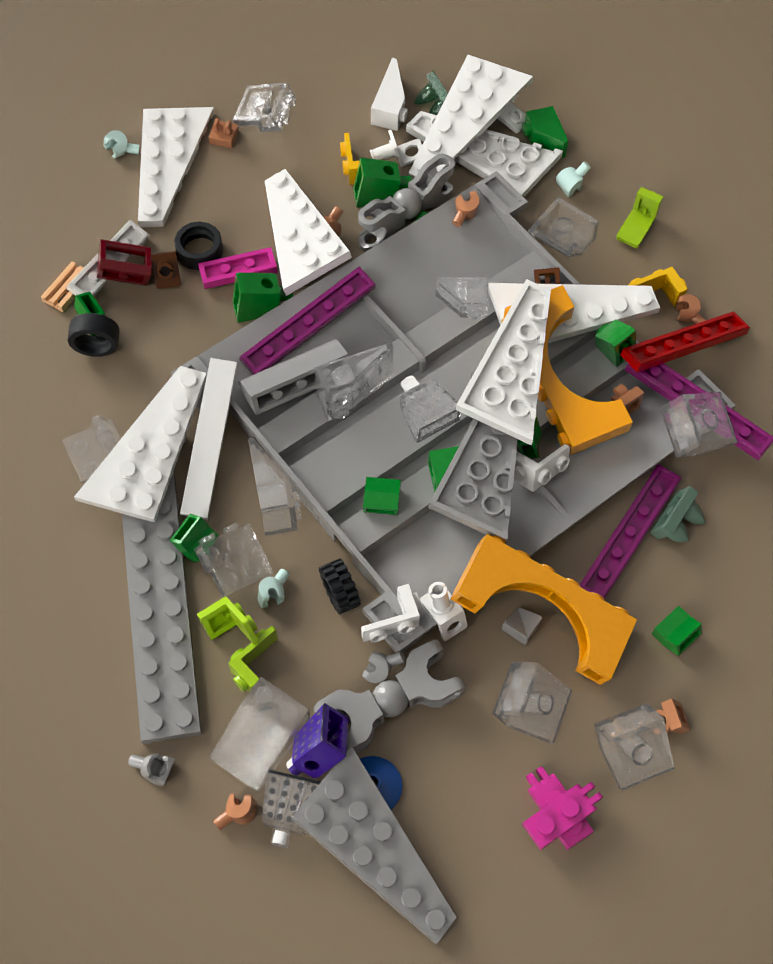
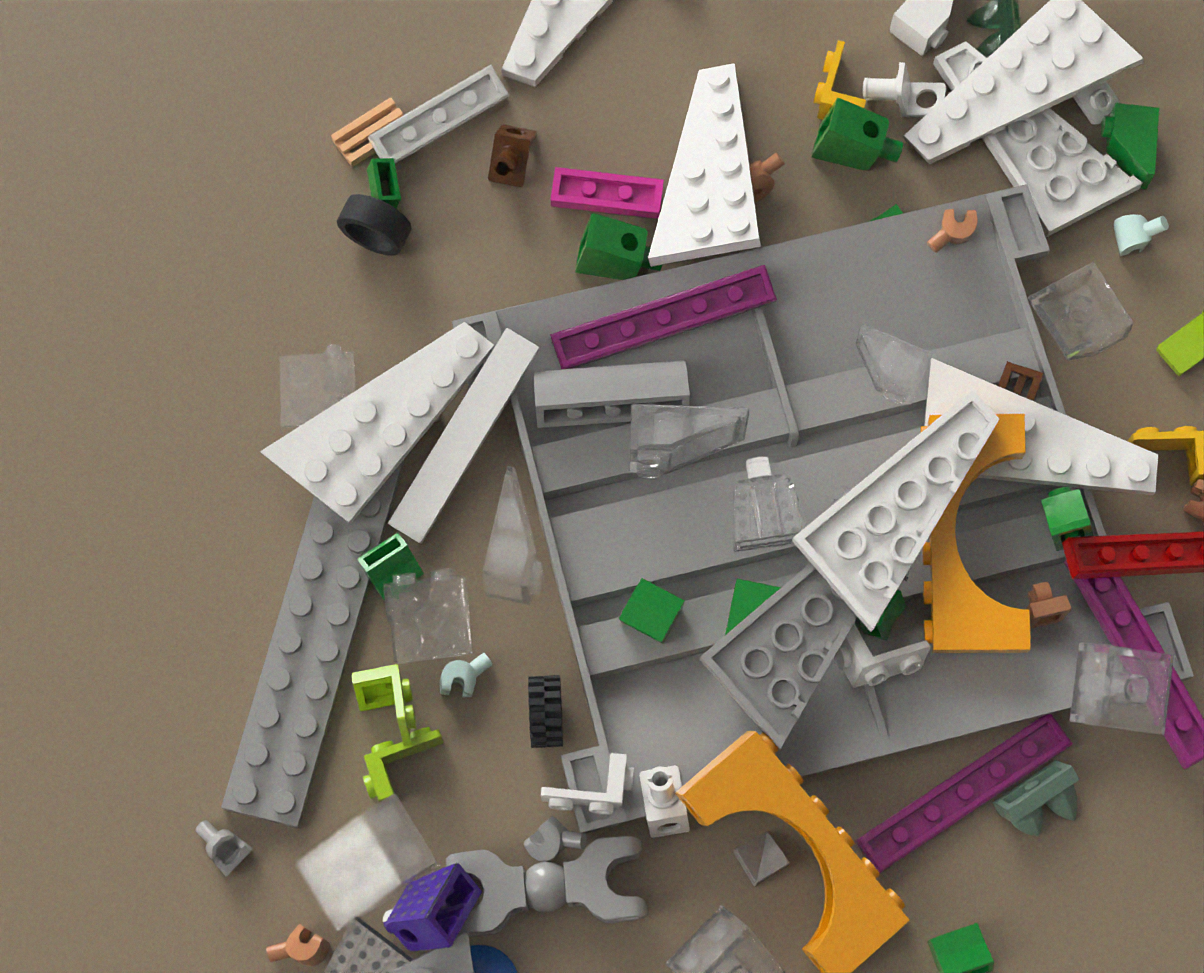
camera: 25 degrees right, 10 degrees up
(124, 271) = (449, 142): dark red tile -> none
(194, 231) = (564, 113): black tyre -> none
(421, 194) = (876, 187): light grey piece -> none

